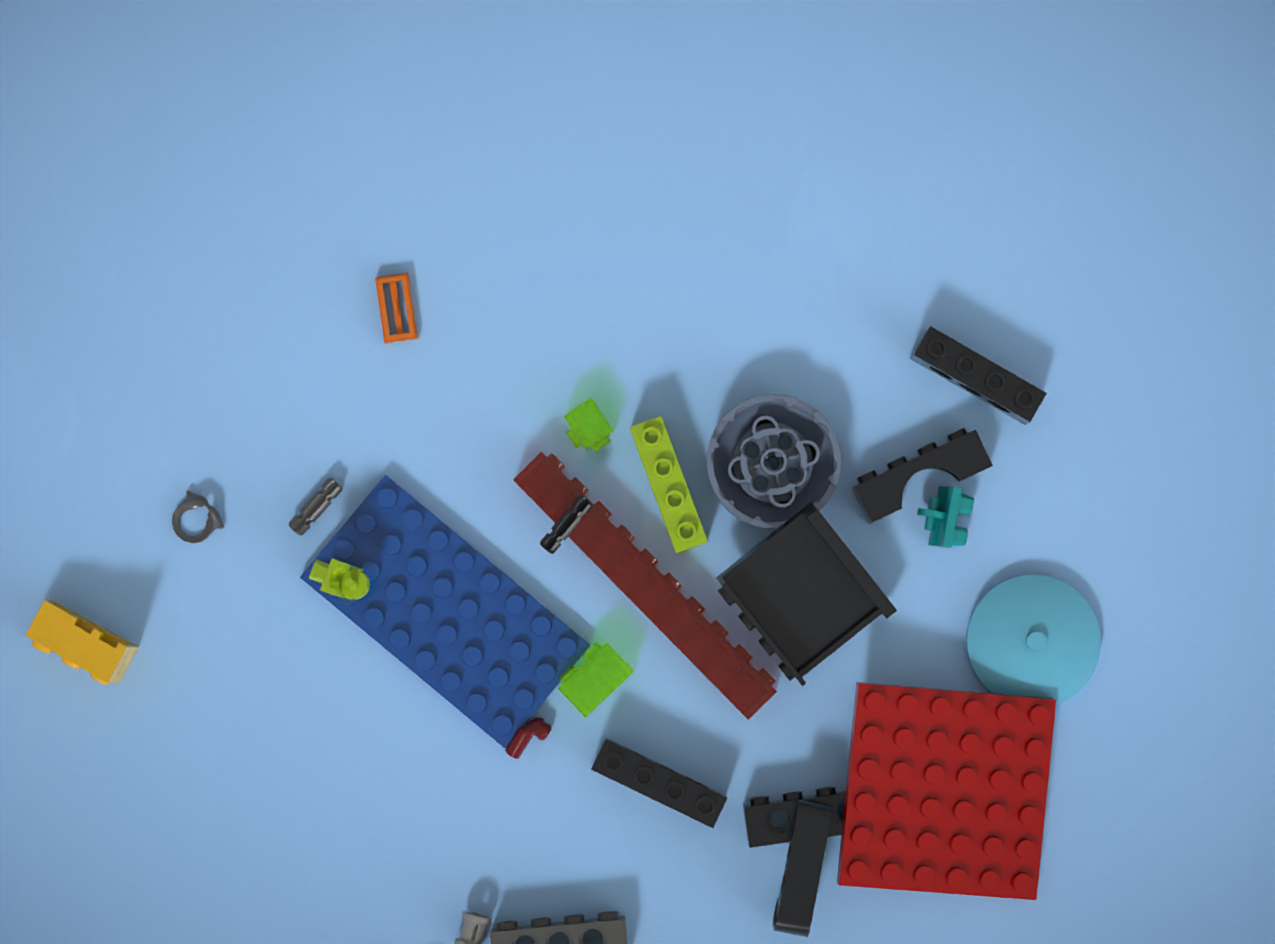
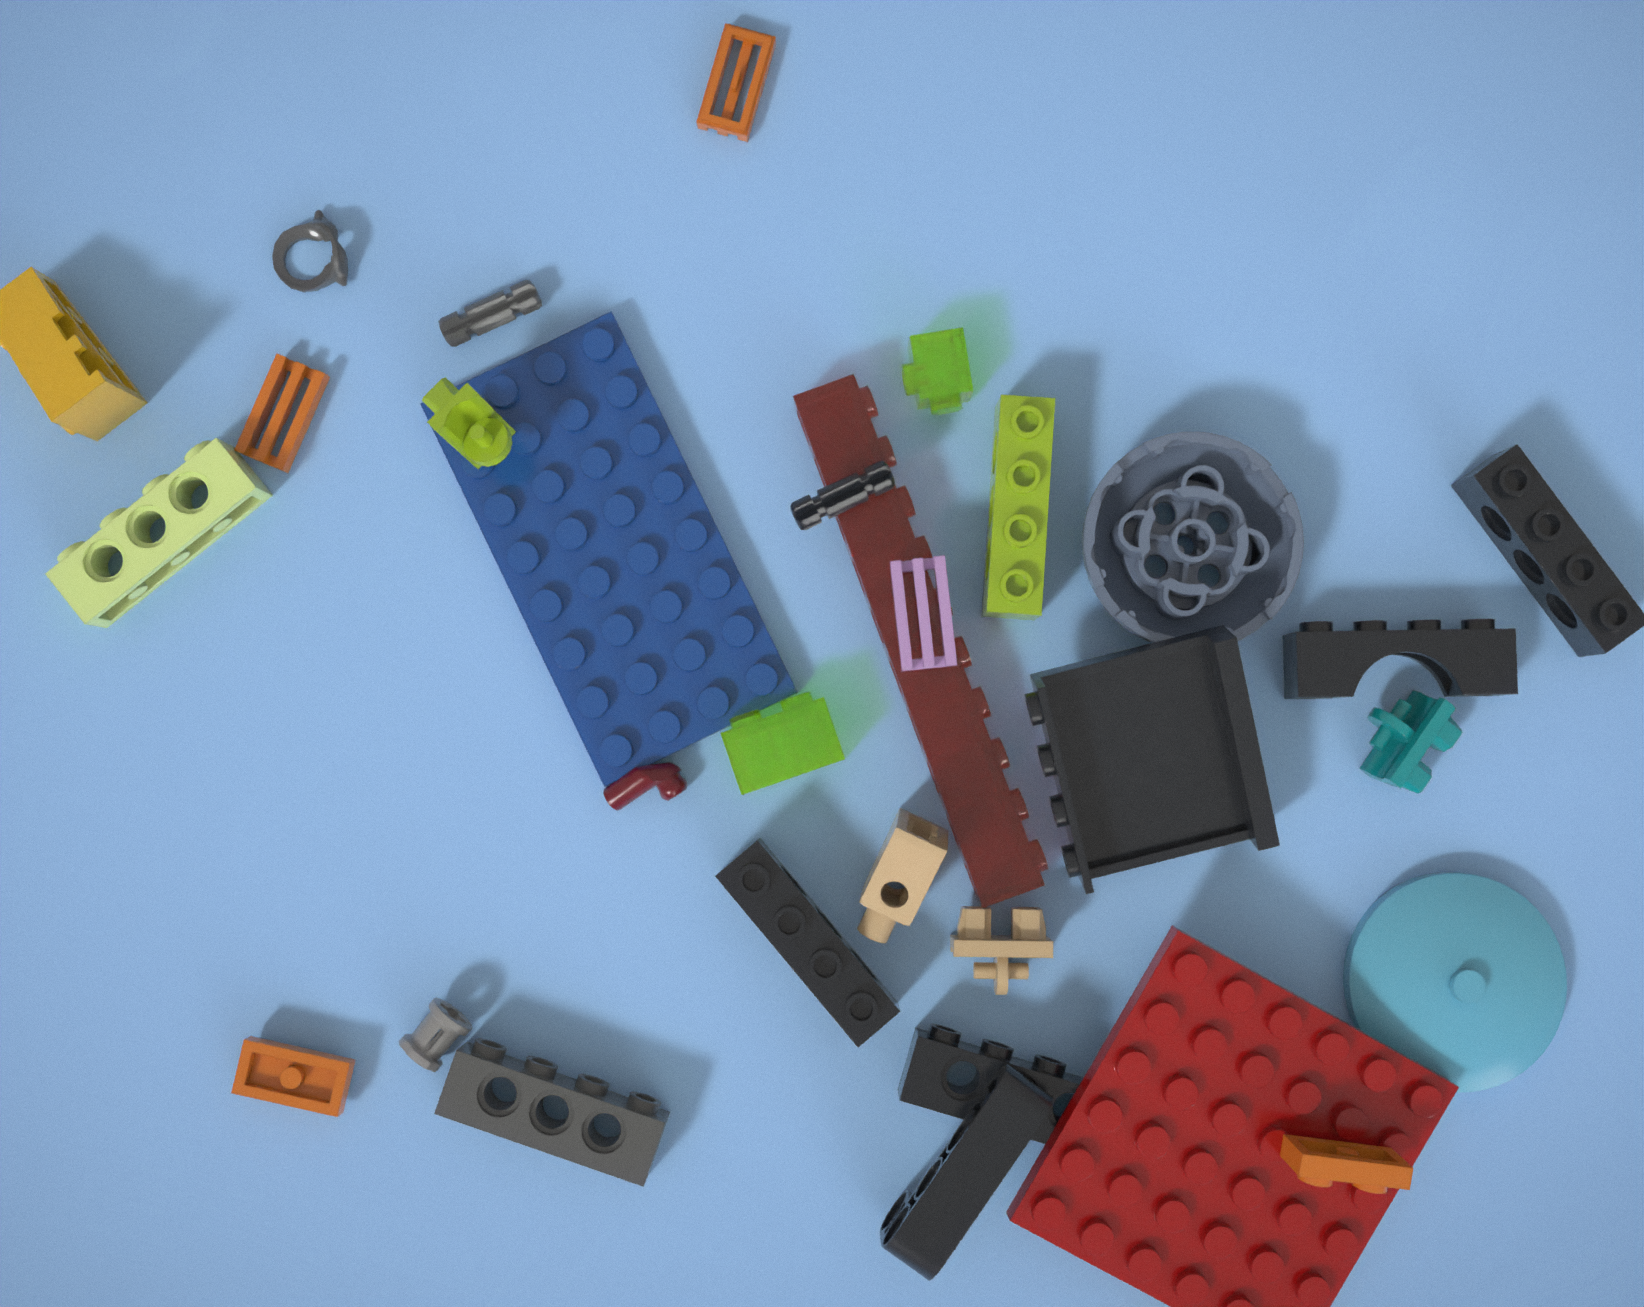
camera: 30 degrees right, 0 degrees up
(208, 618) = (264, 404): none -> orange tile
(216, 676) = (83, 566): none -> yellowish green brick
(627, 546) = (918, 567): none -> lavender tile
(694, 710) = (908, 856): none -> tan torso
(781, 726) = (1026, 941): none -> tan hips
(1018, 766) = (1363, 1165): none -> orange plate

